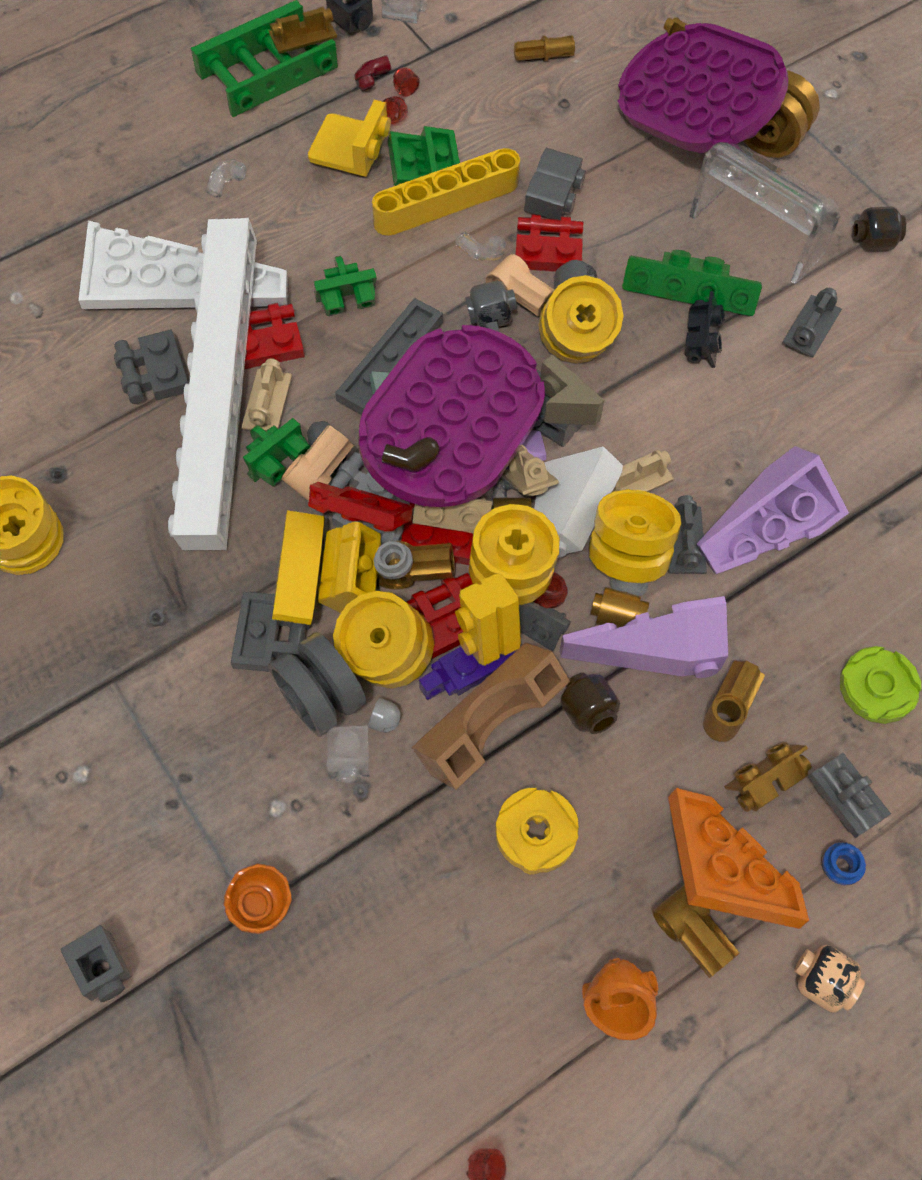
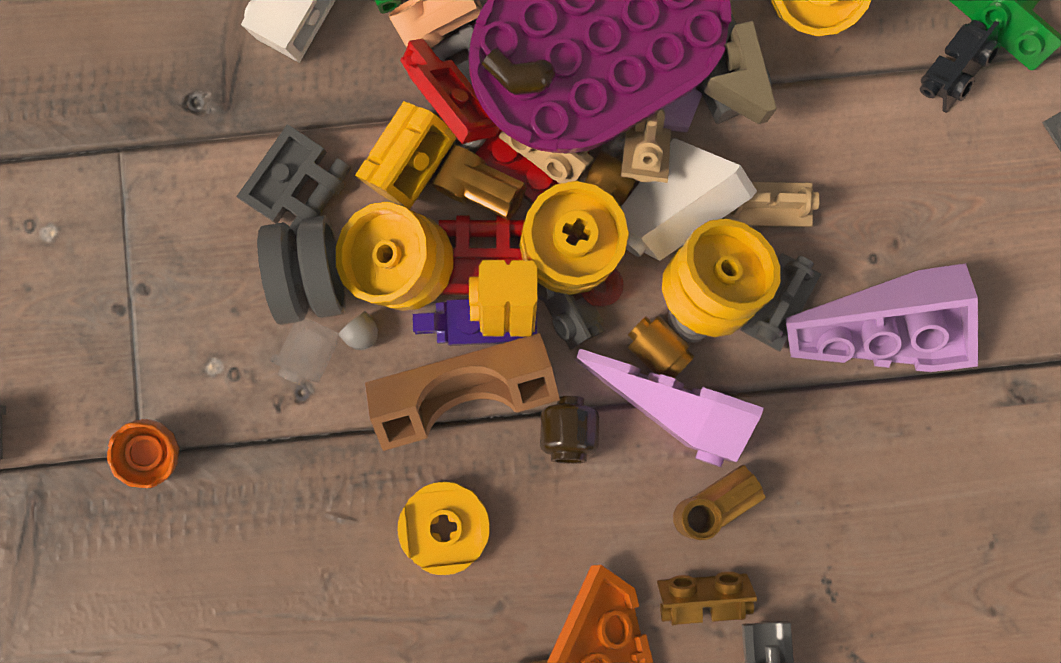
camera: 30 degrees right, 20 degrees up
(298, 568) = (353, 127): yellow slope -> none
(389, 551) = (444, 163): light grey plate -> none
(880, 685) = (883, 567): lime tile -> none

